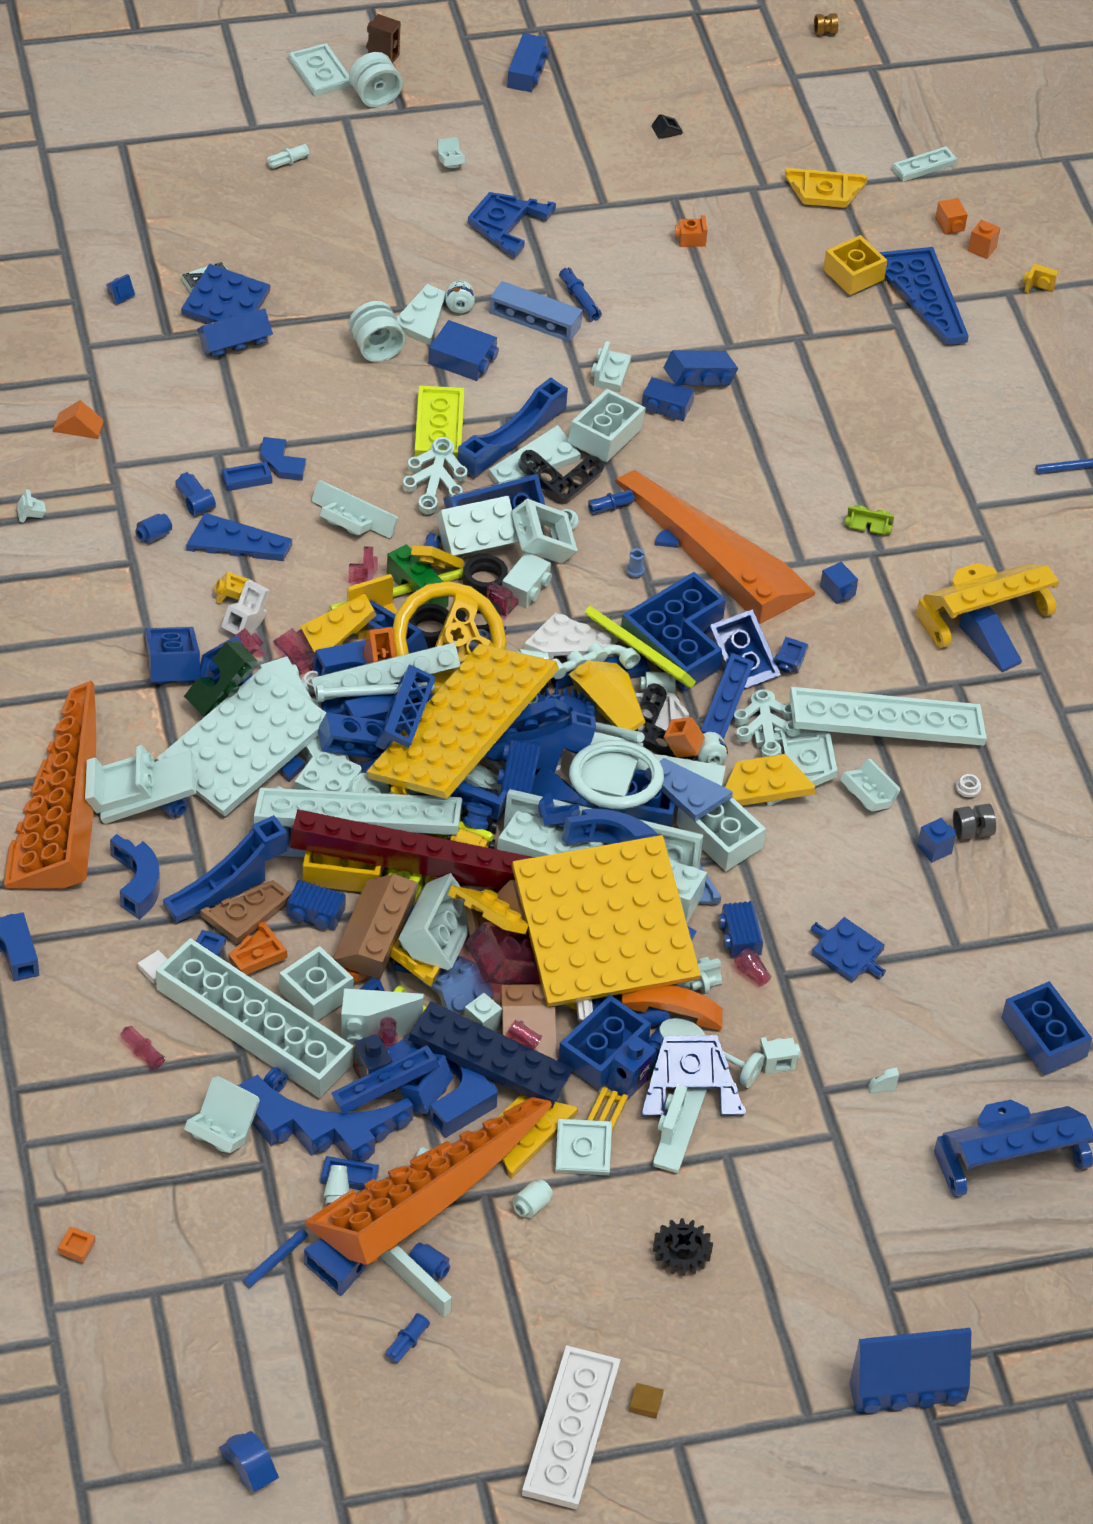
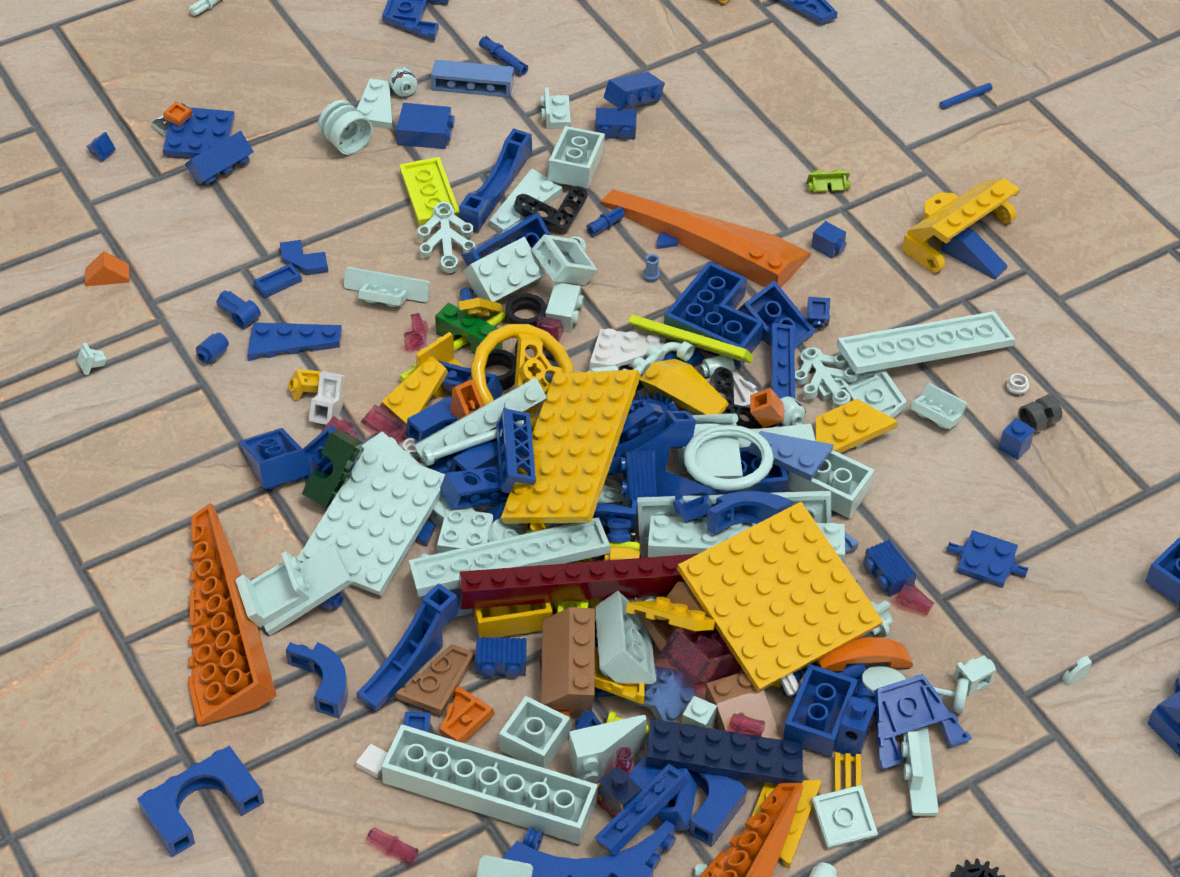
camera: 15 degrees left, 0 degrees up
(209, 273) = (177, 114): none -> orange tile

